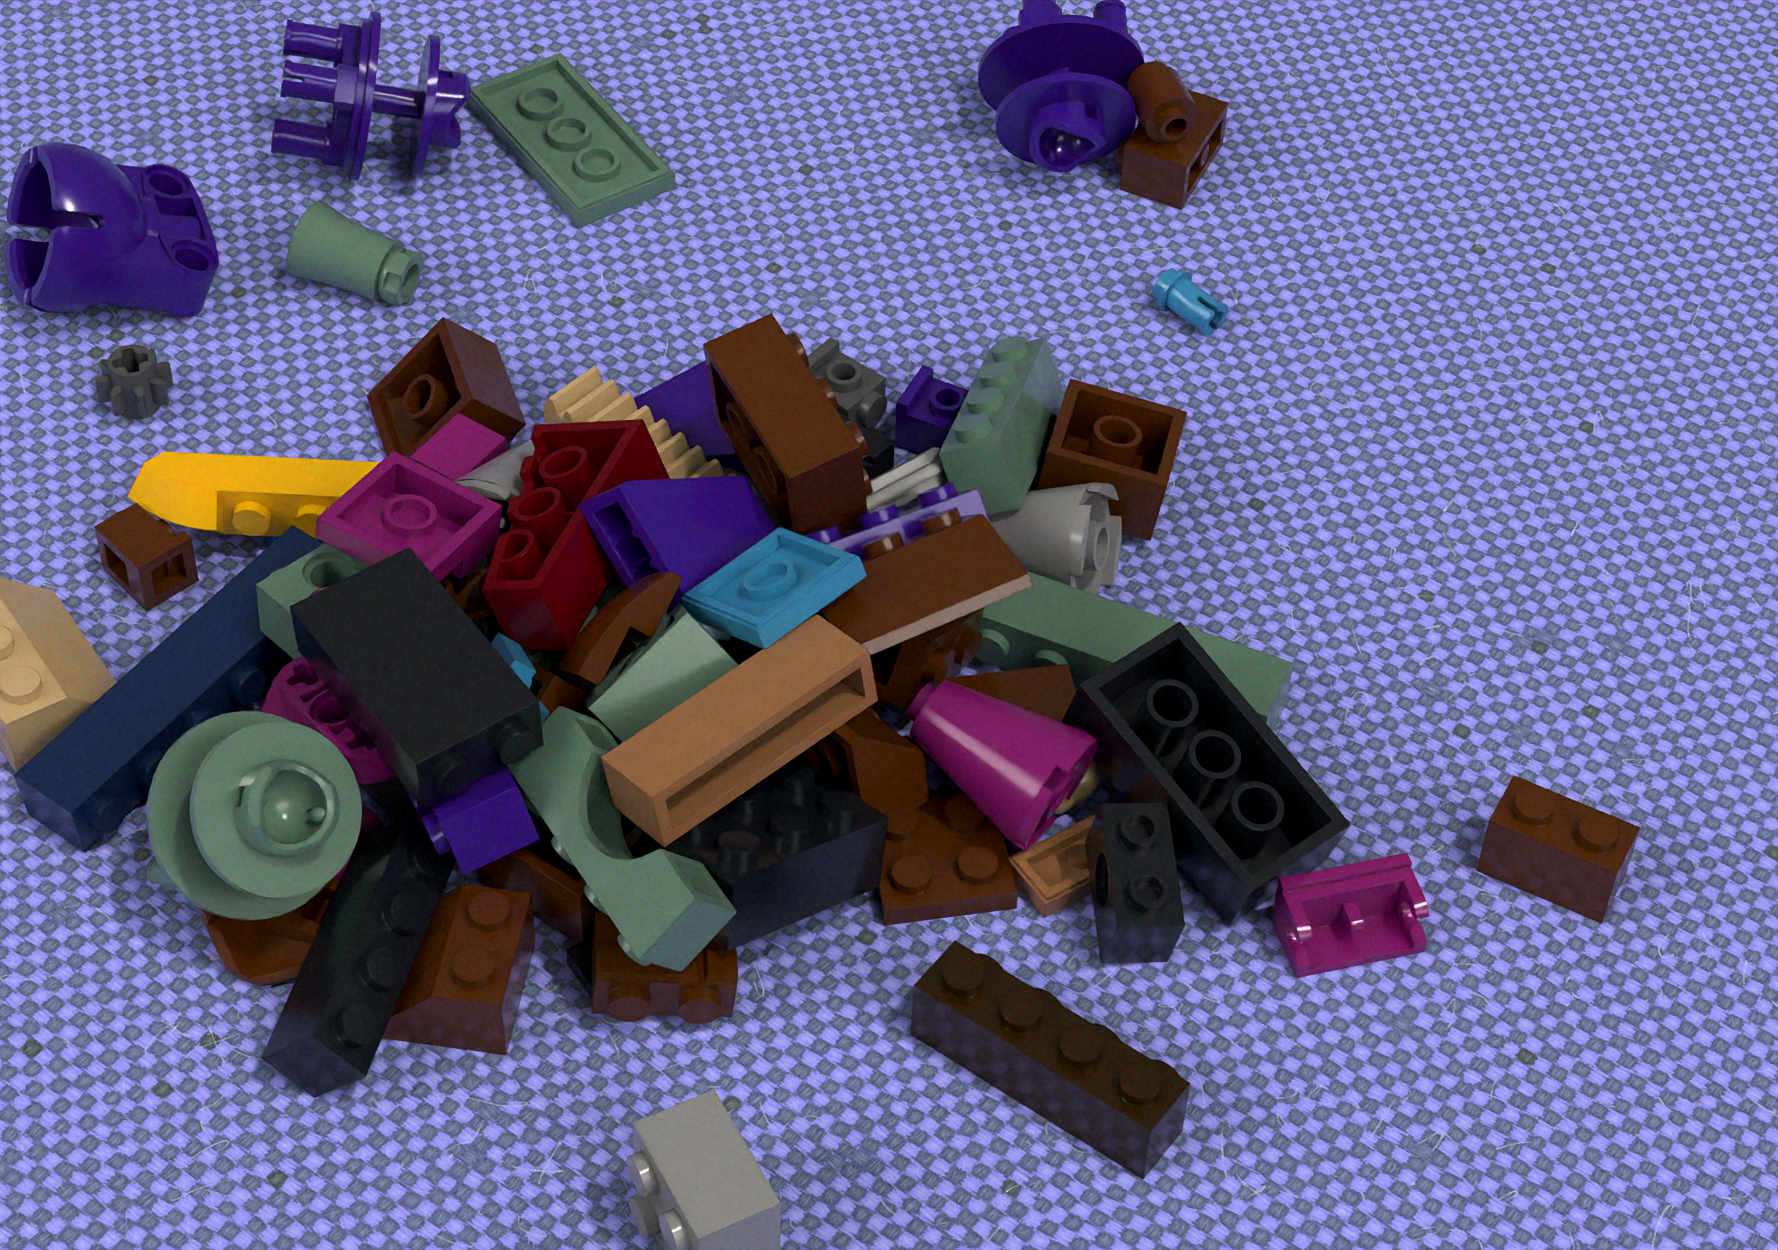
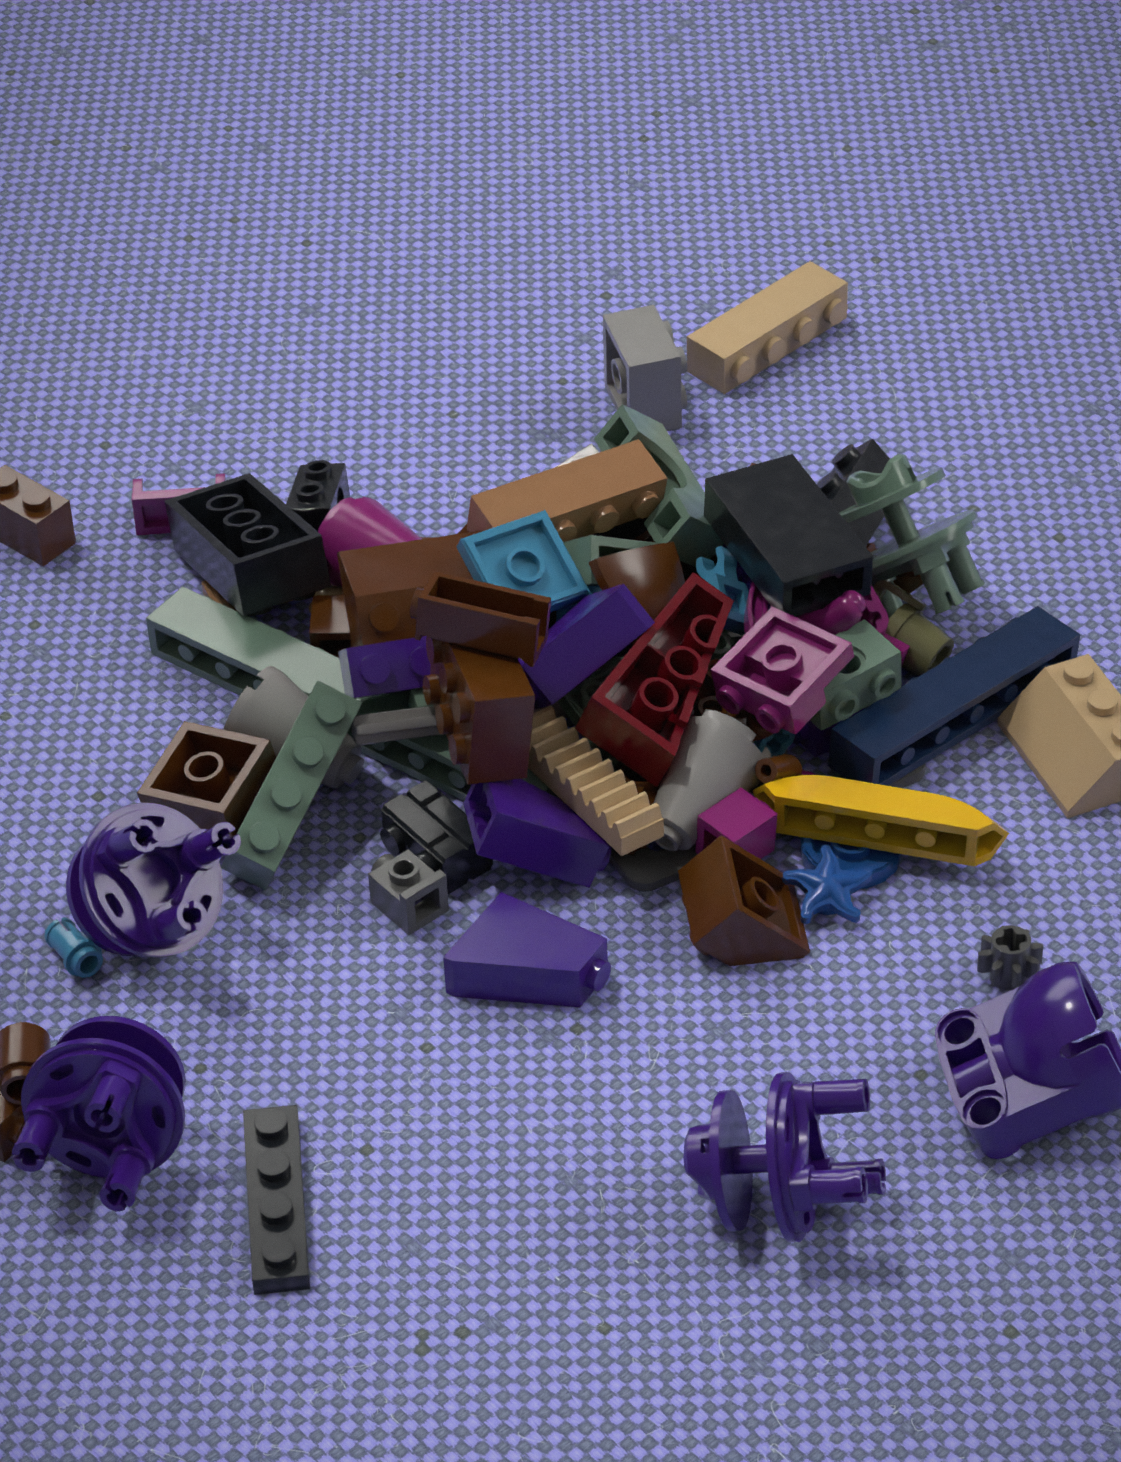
camera: 165 degrees left, 5 degrees down
(146, 556) = (1001, 801): reddish brown brick -> none
(349, 442) = (828, 887): none -> blue animal
(352, 257) = (810, 1047): sand green plant -> none
(570, 140) = (591, 1198): sand green tile -> none
(663, 323) = (526, 957): none -> dark purple slope
(790, 392) = (482, 616): none -> reddish brown window
(879, 109) = (276, 1200): none -> black plate
(926, 412) = (321, 855): dark purple brick -> none
(1049, 1058) = (411, 439): dark brown brick -> none
(1112, 274) = (148, 880): none -> dark purple piece

